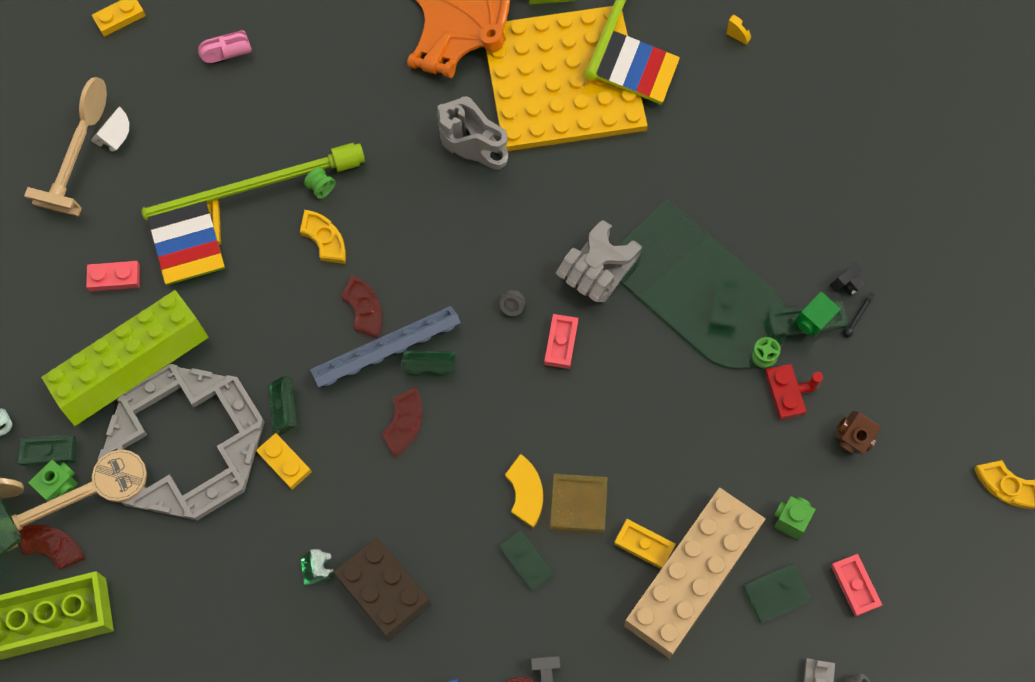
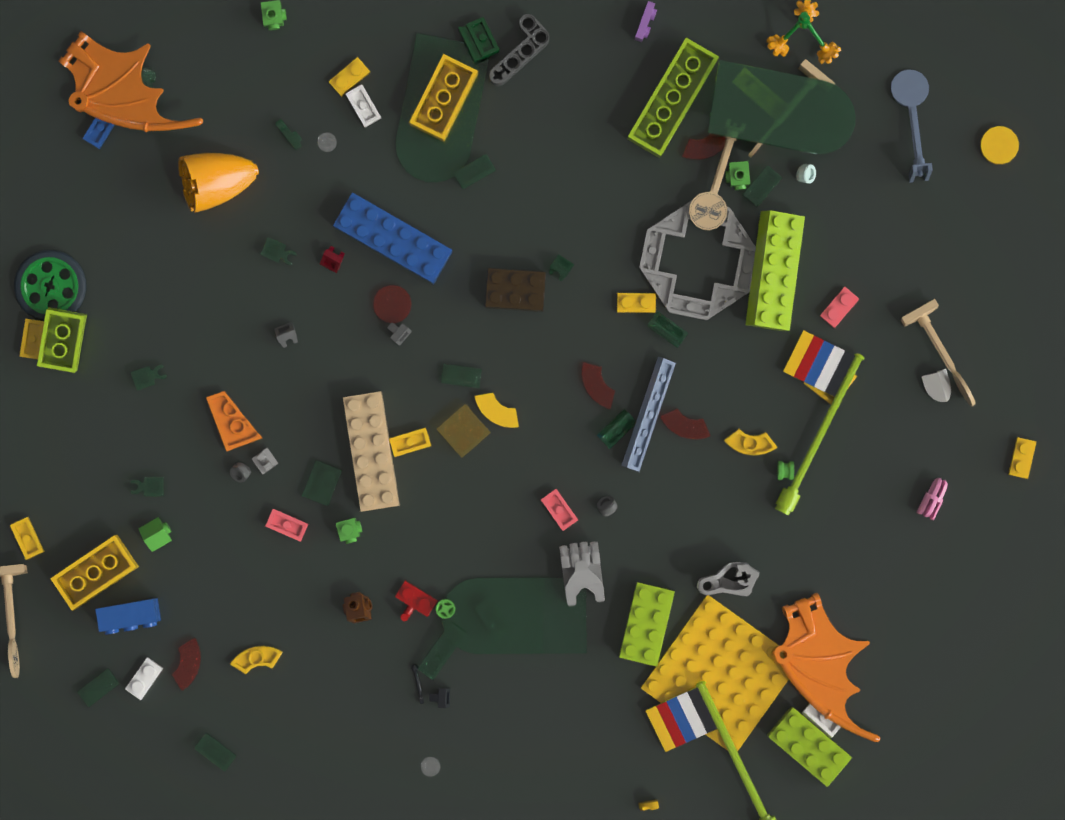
camera: 135 degrees right, 20 degrees up
(585, 169) = (646, 624): none -> lime brick
(816, 315) = (436, 653): green brick -> none
(917, 232) = (430, 766): none -> clear plate

